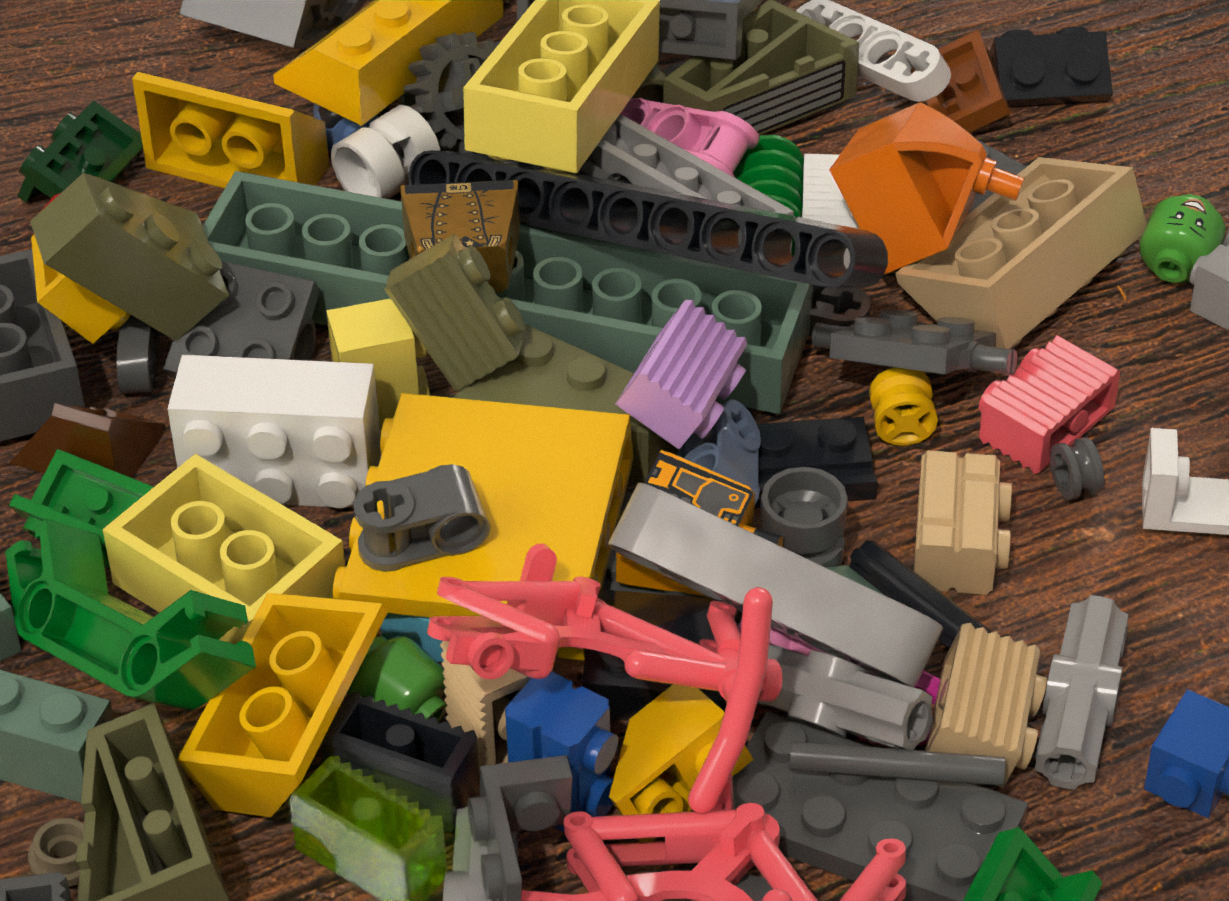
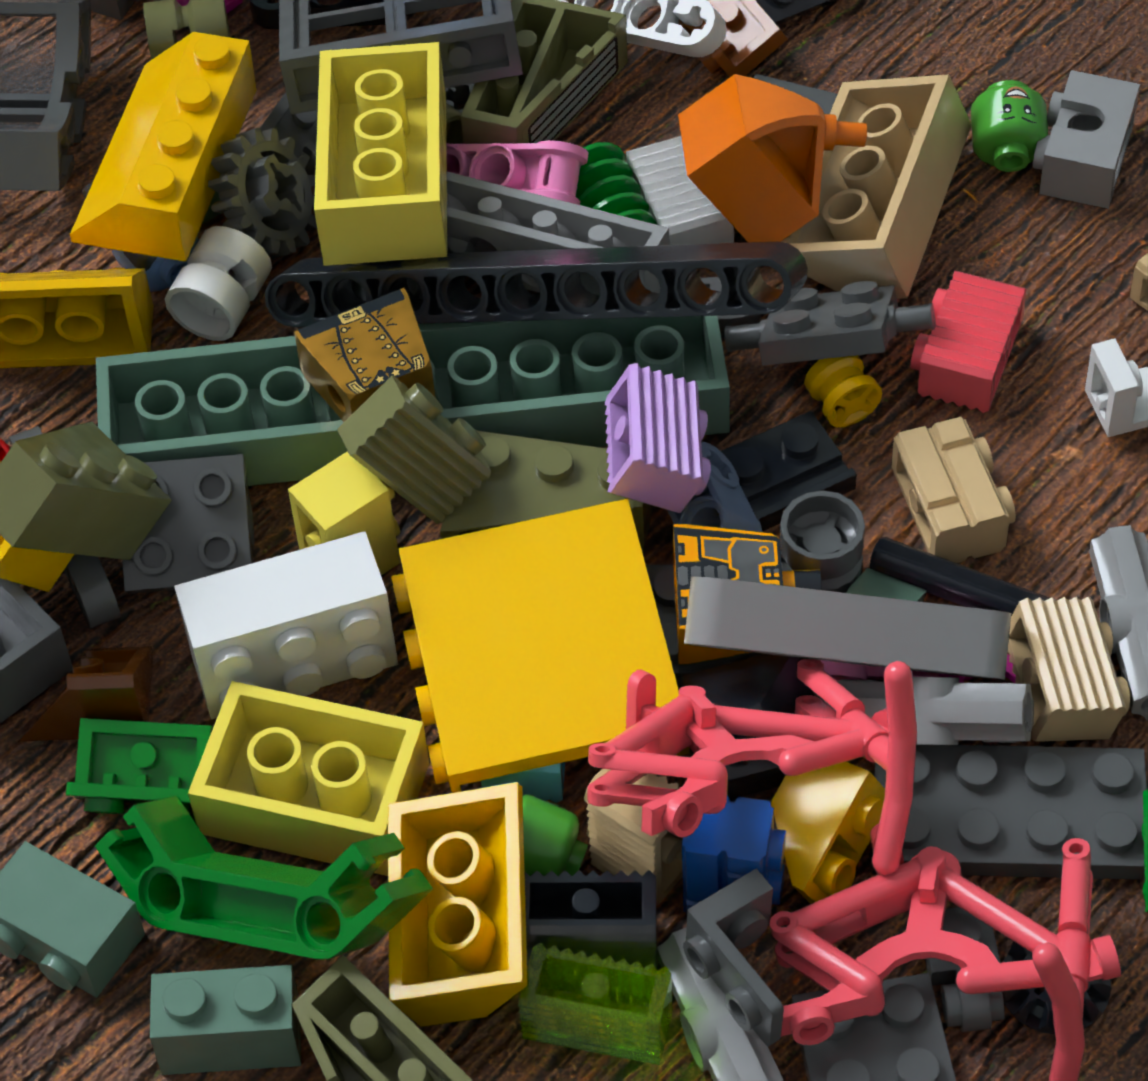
camera: 20 degrees left, 10 degrees up
(424, 513) = (497, 676): dark grey piece -> none
(897, 763) = (1022, 756): dark grey bar -> none
(1077, 468) = (1026, 398): dark grey bush -> none

